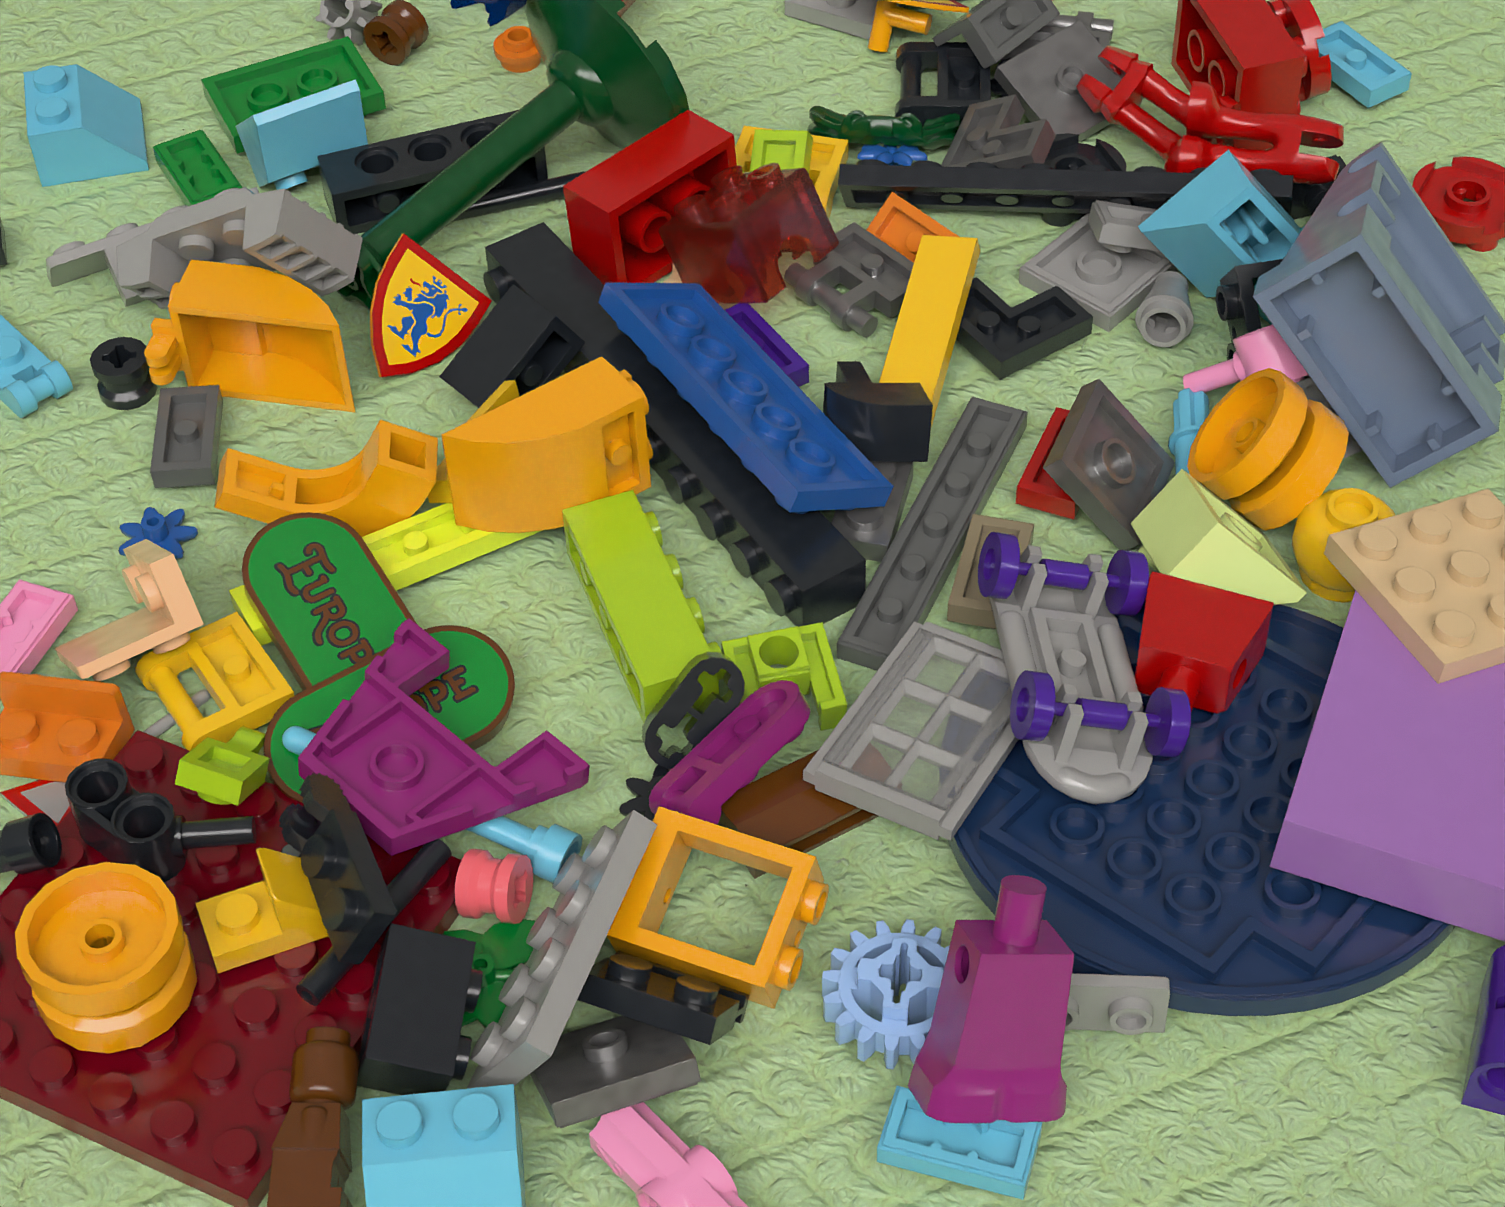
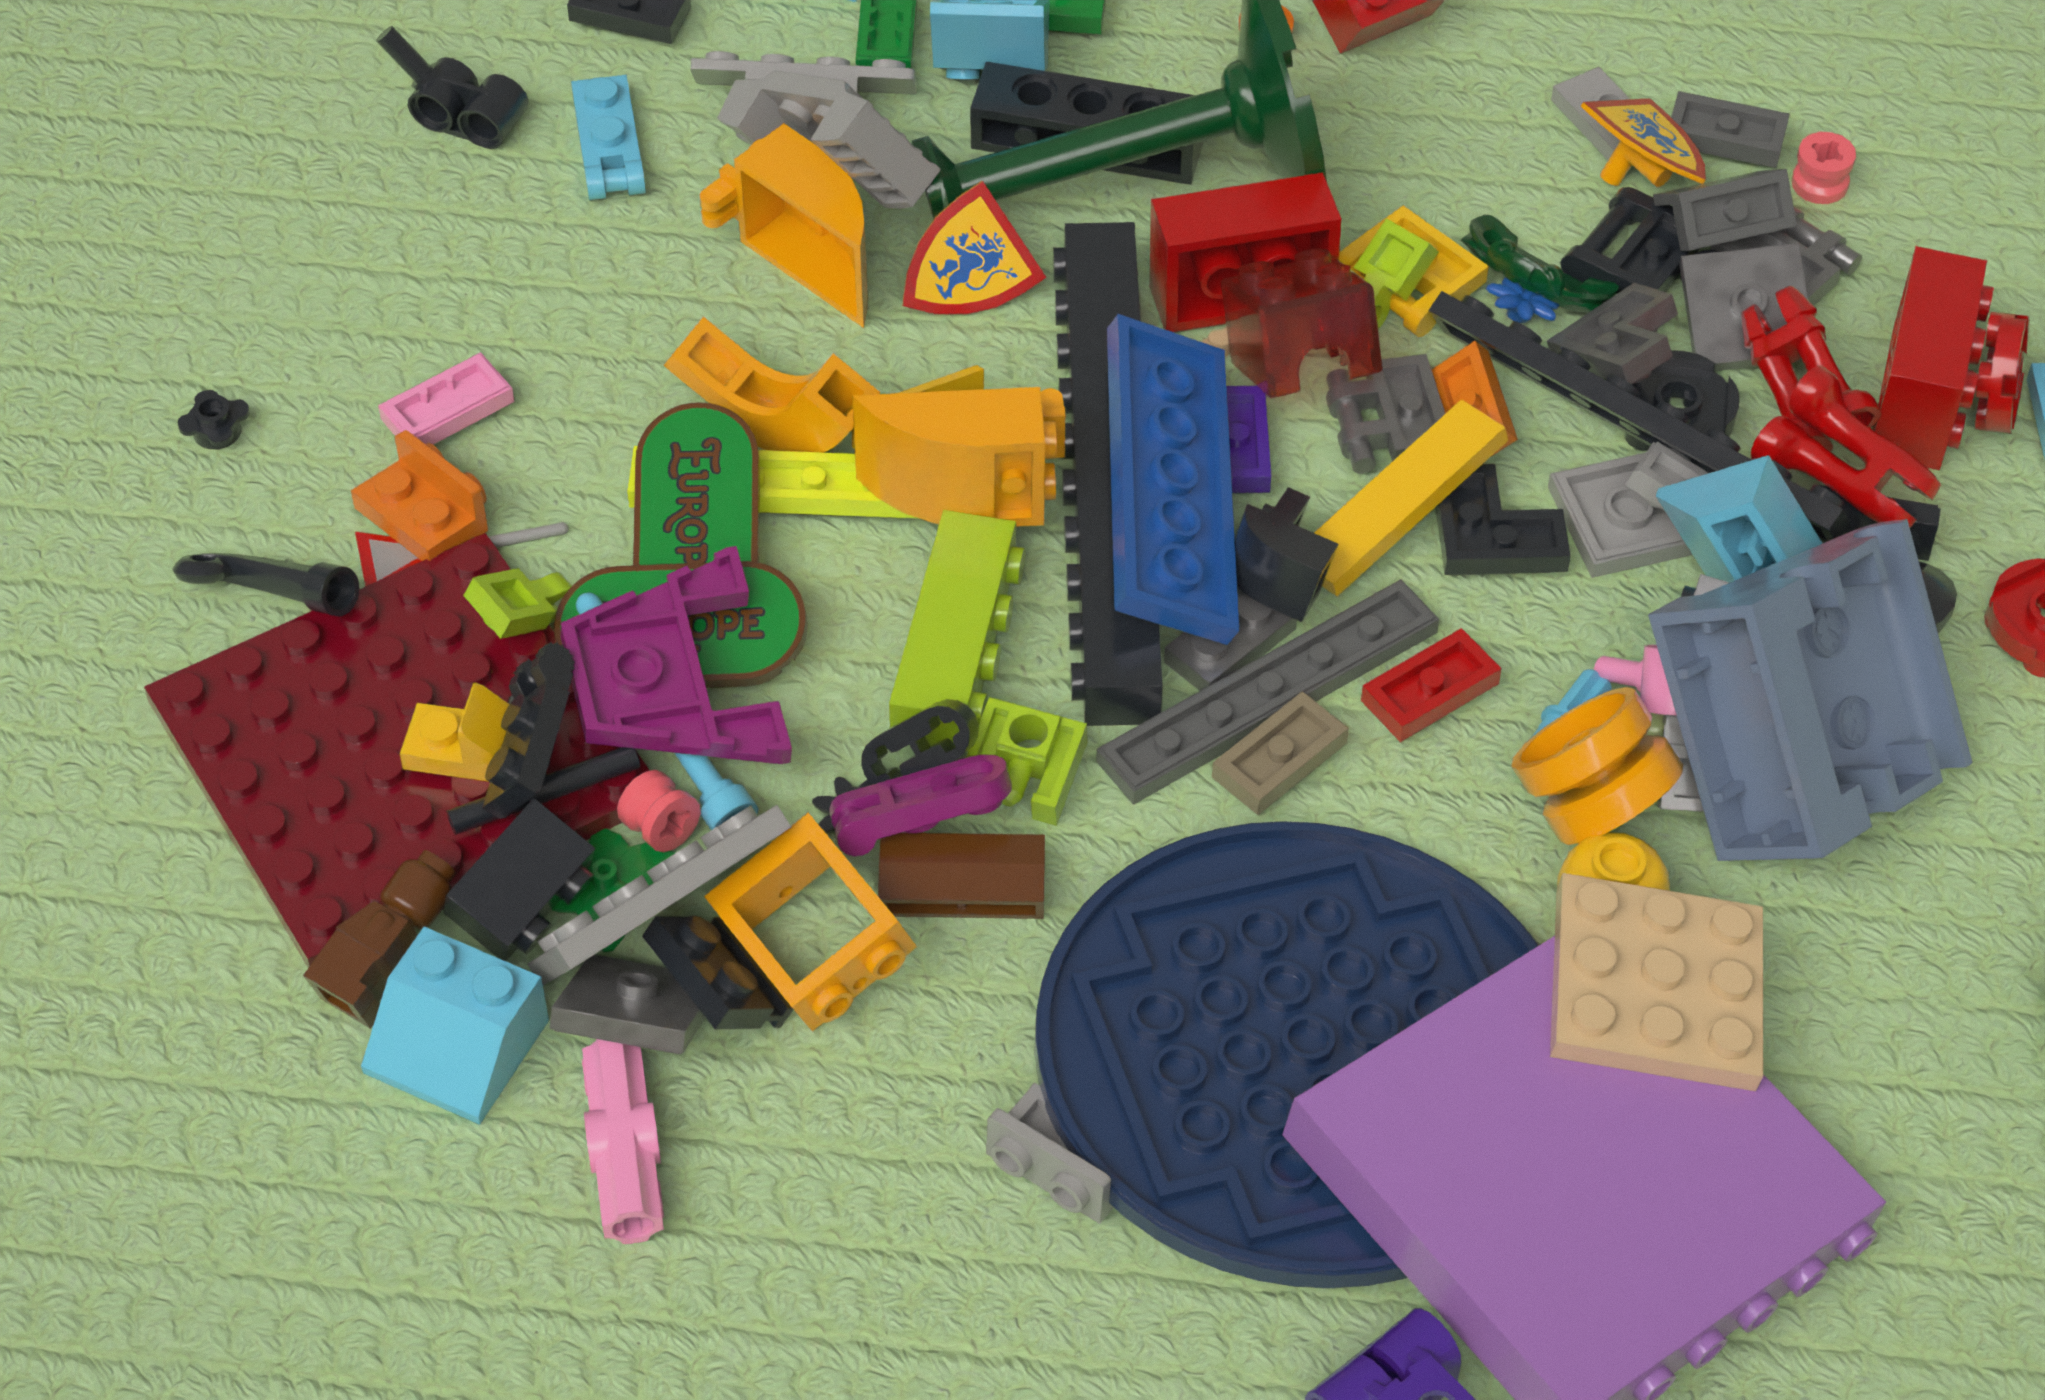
camera: 30 degrees right, 5 degrees up
(106, 957) = (316, 712): light orange wheel -> none
(122, 373) = (681, 193): black wheel -> none
(142, 826) = (416, 618): black beam -> none
(159, 626) = (547, 448): light nougat bracket -> none
(160, 530) = (621, 365): blue plant -> none
(187, 436) = (702, 283): dark grey plate -> none
(233, 672) = (591, 525): yellow plate -> none
(513, 343) = (1012, 338): black brick -> none
(518, 196) = (1151, 180): black bar -> none
(863, 987) = (906, 1072): light blue gear -> none
(922, 733) = (1100, 865): clear piece -> none
(973, 1154) = (862, 1216): medium azure plate -> none
(999, 1017) = (933, 1142): magenta piece -> none
(1072, 670) = (1236, 904): light grey piece -> none
(1108, 463) = (1454, 707): flat silver plate -> none
(1166, 311) = (1651, 582): light grey cone -> none
(1200, 640) = (1382, 913): red torso -> none
(1205, 541) = (1481, 836): yellowish green slope -> none

